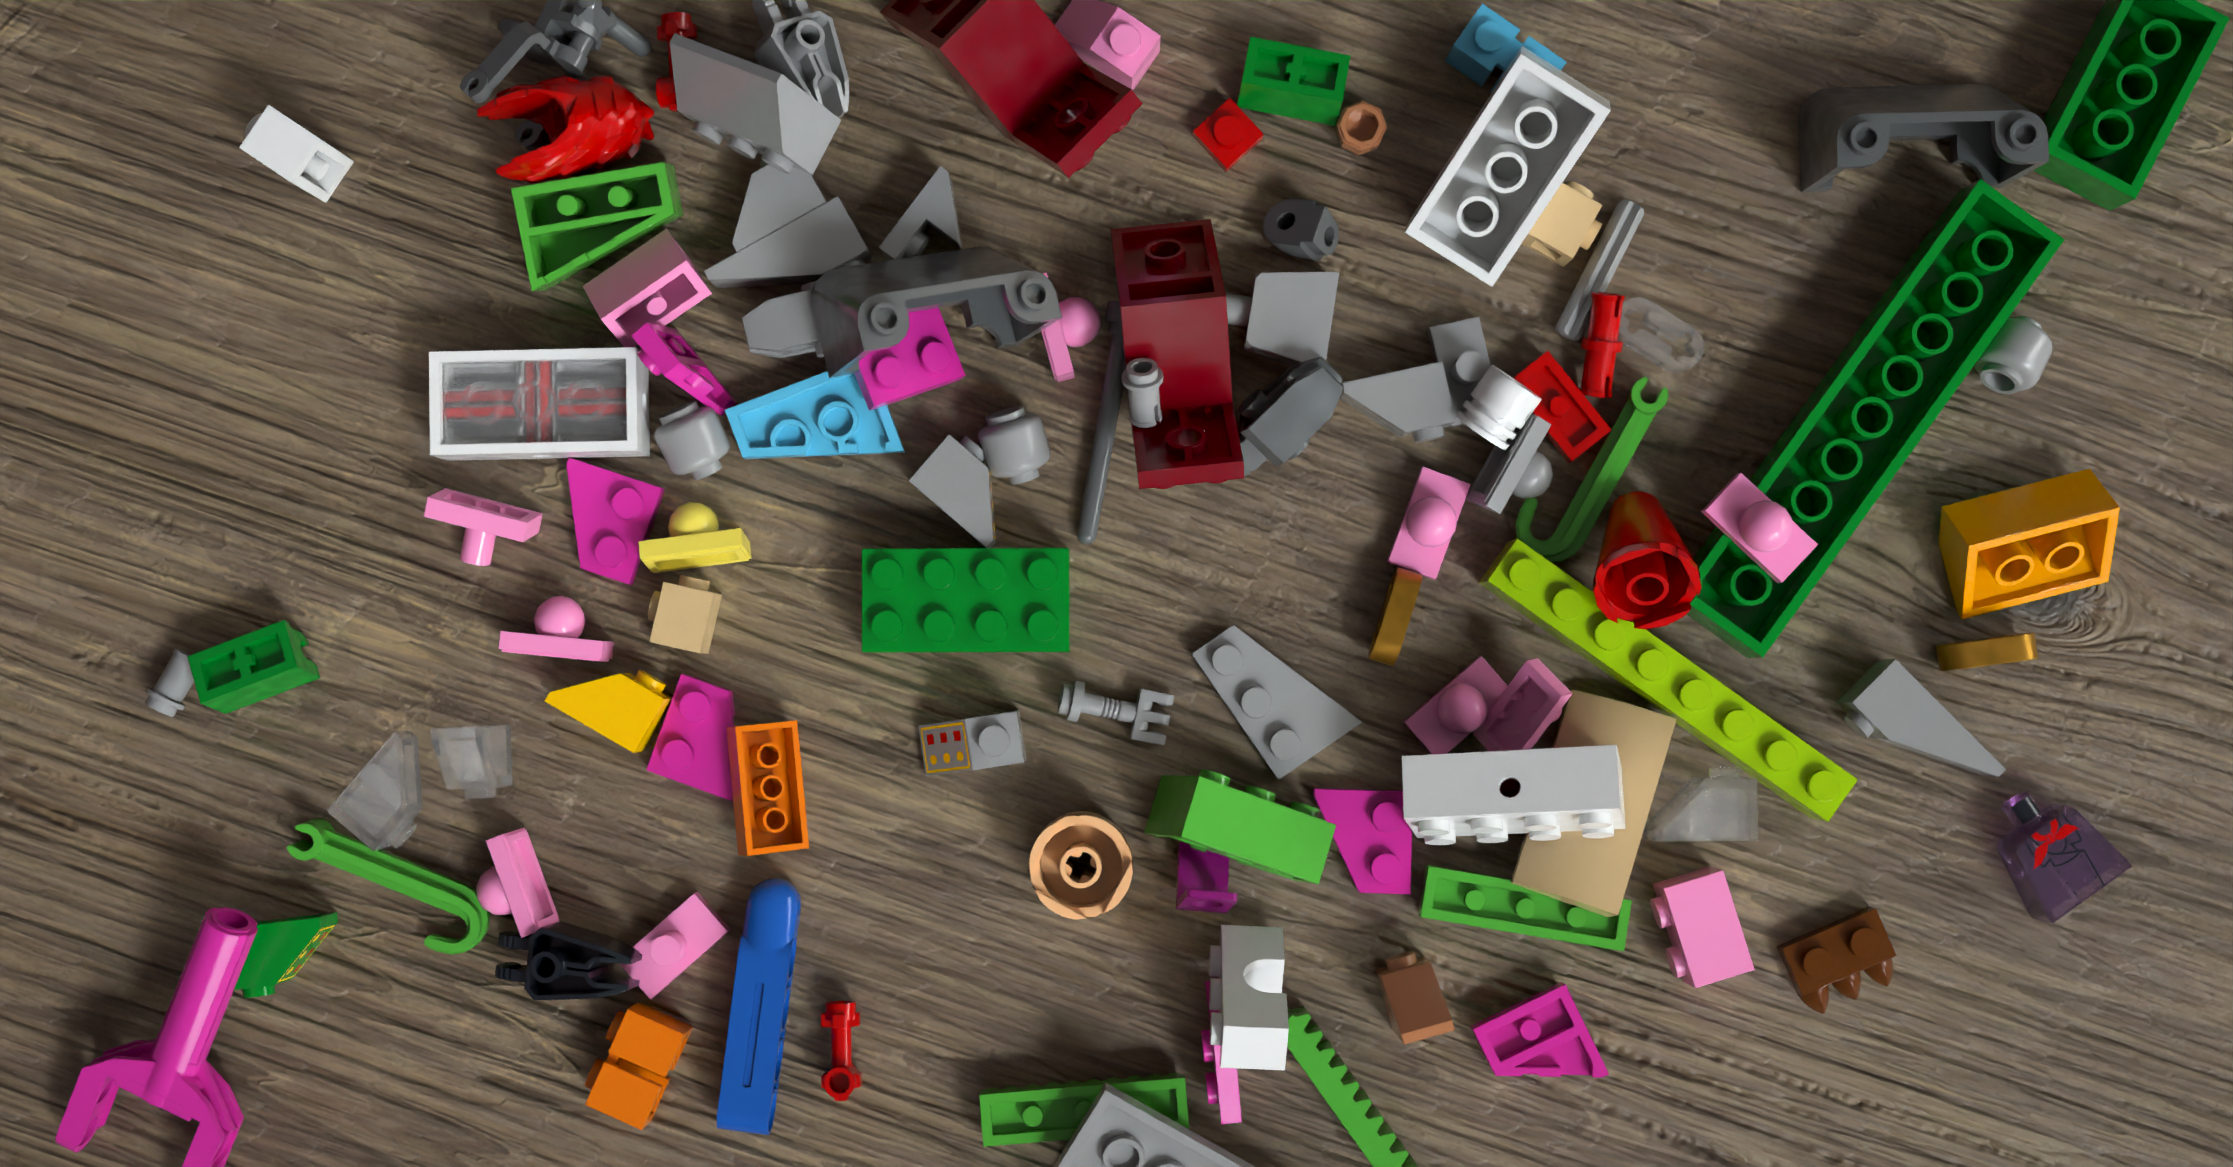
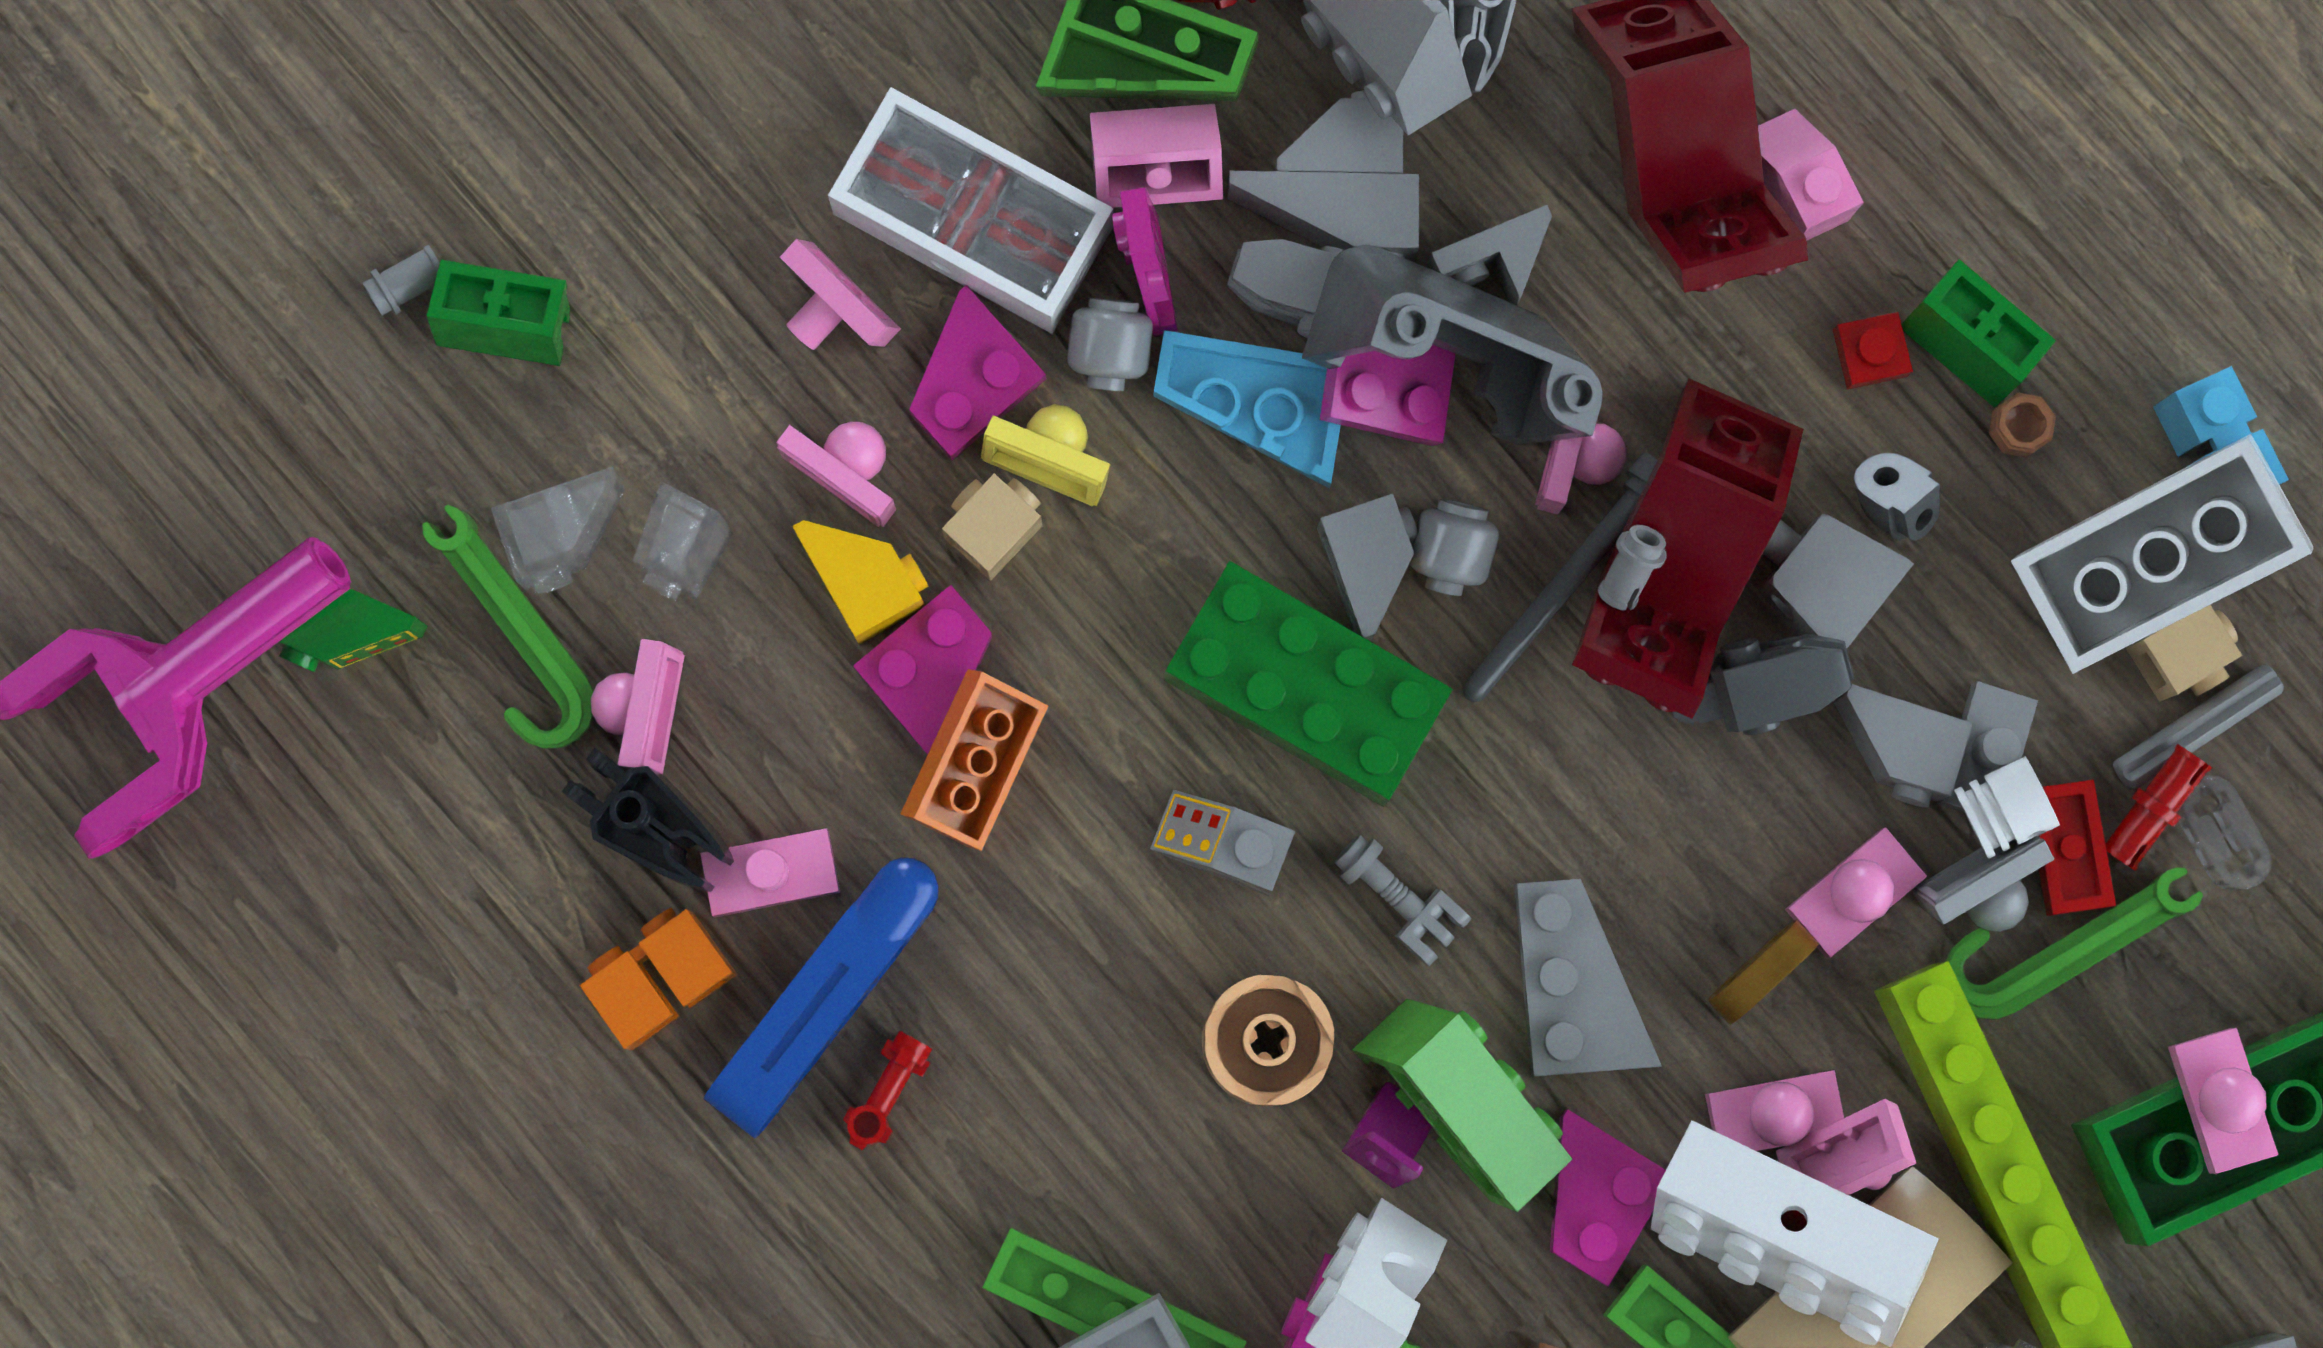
camera: 20 degrees right, 5 degrees down
(1644, 565) = (2072, 1071): red cone -> none

